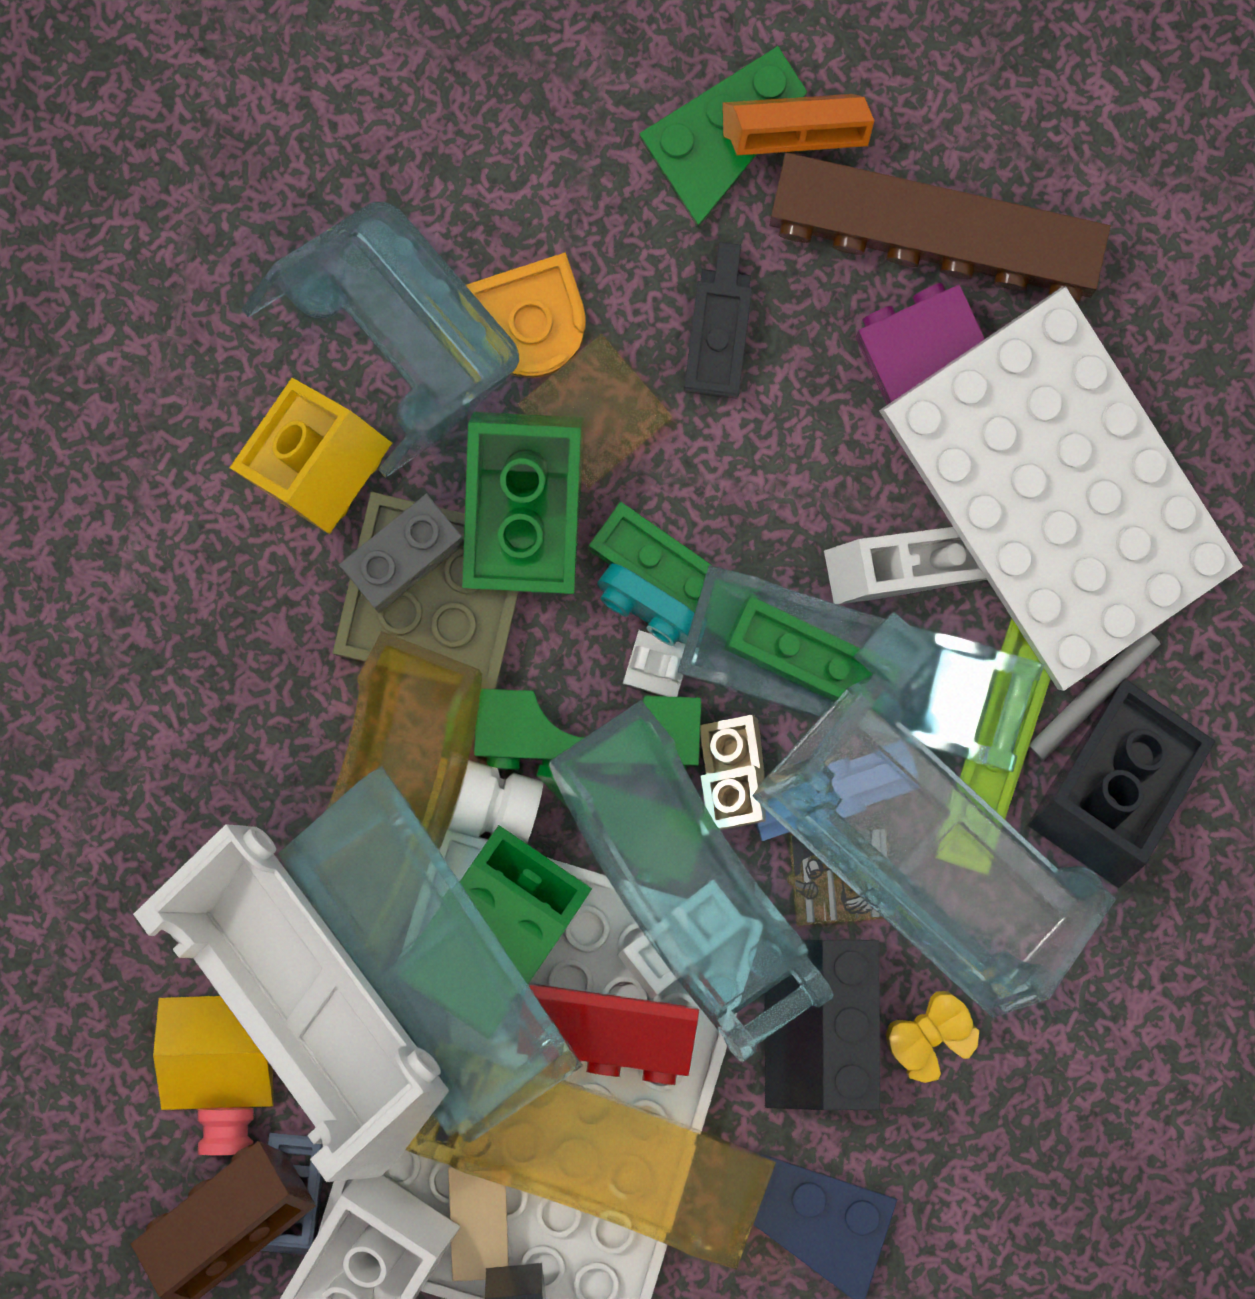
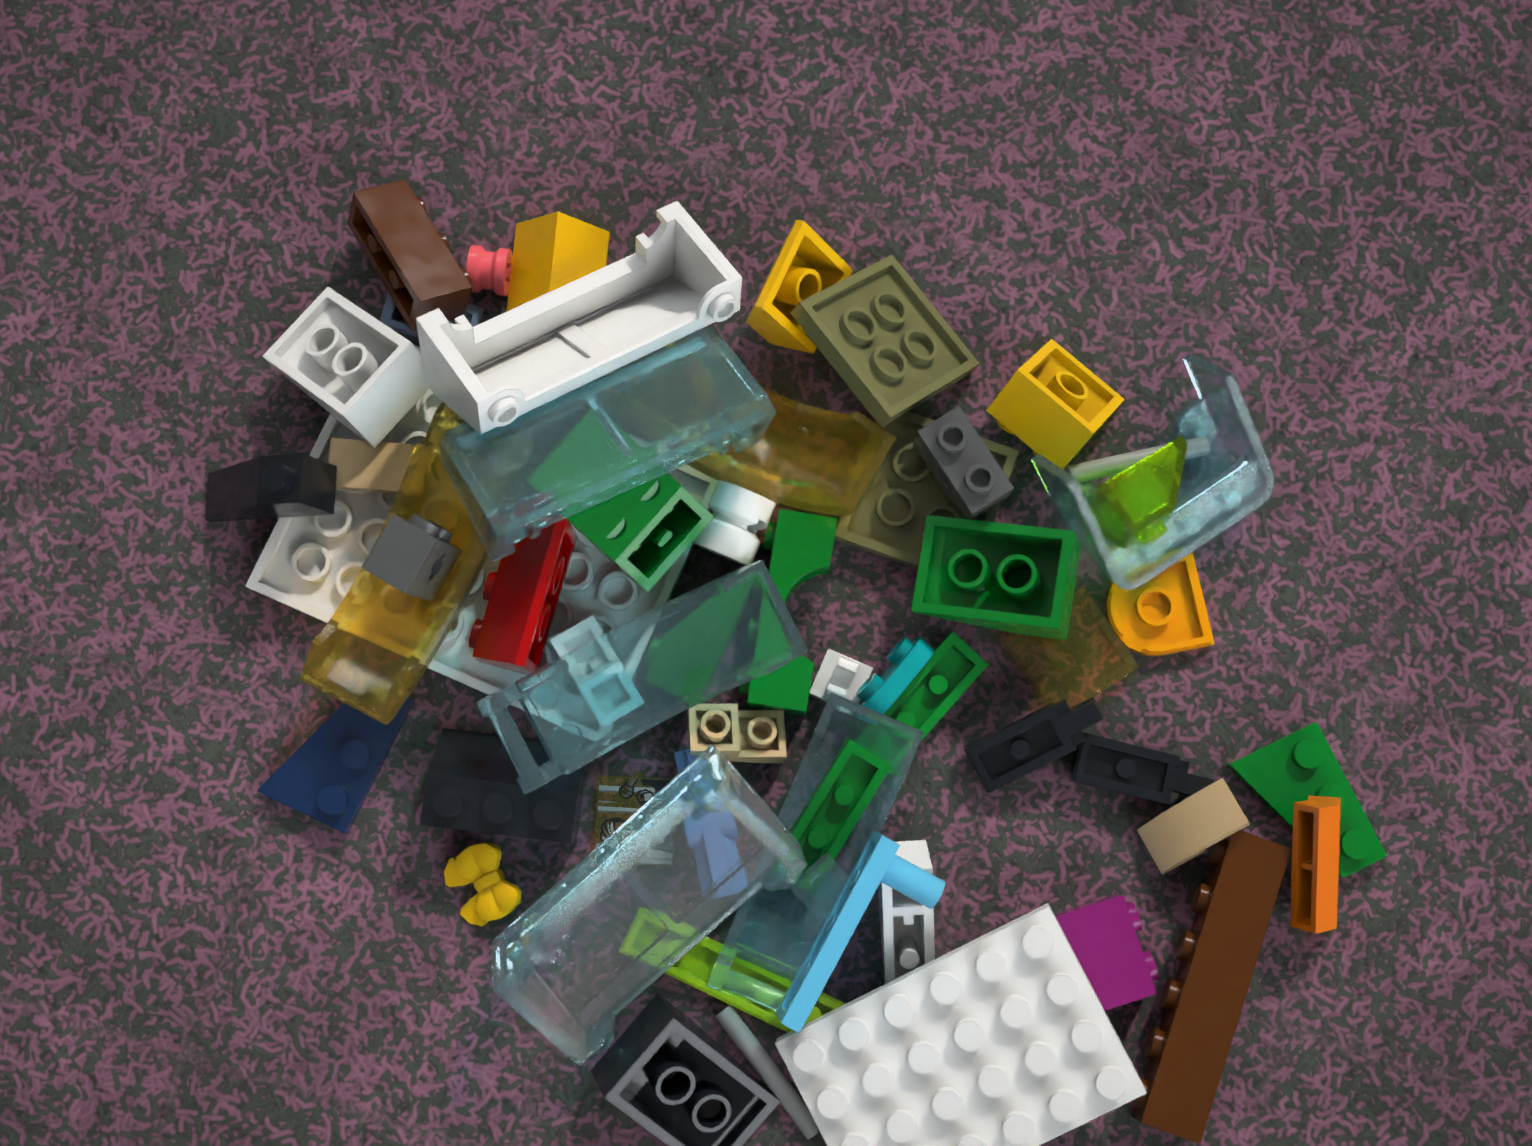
camera: 95 degrees right, 5 degrees down
(216, 763) = (800, 270): none -> yellow slope
(261, 657) = (885, 339): none -> olive plate
(367, 357) = (1115, 464): none -> light grey bar
(422, 350) = (1141, 498): none -> clear neon green slope
(586, 1155) = (413, 556): none -> dark grey brick
(701, 445) = (1031, 742): none -> black hinge
(773, 260) = (1193, 826): none -> tan slope
(865, 602) = (875, 865): none -> medium azure piece

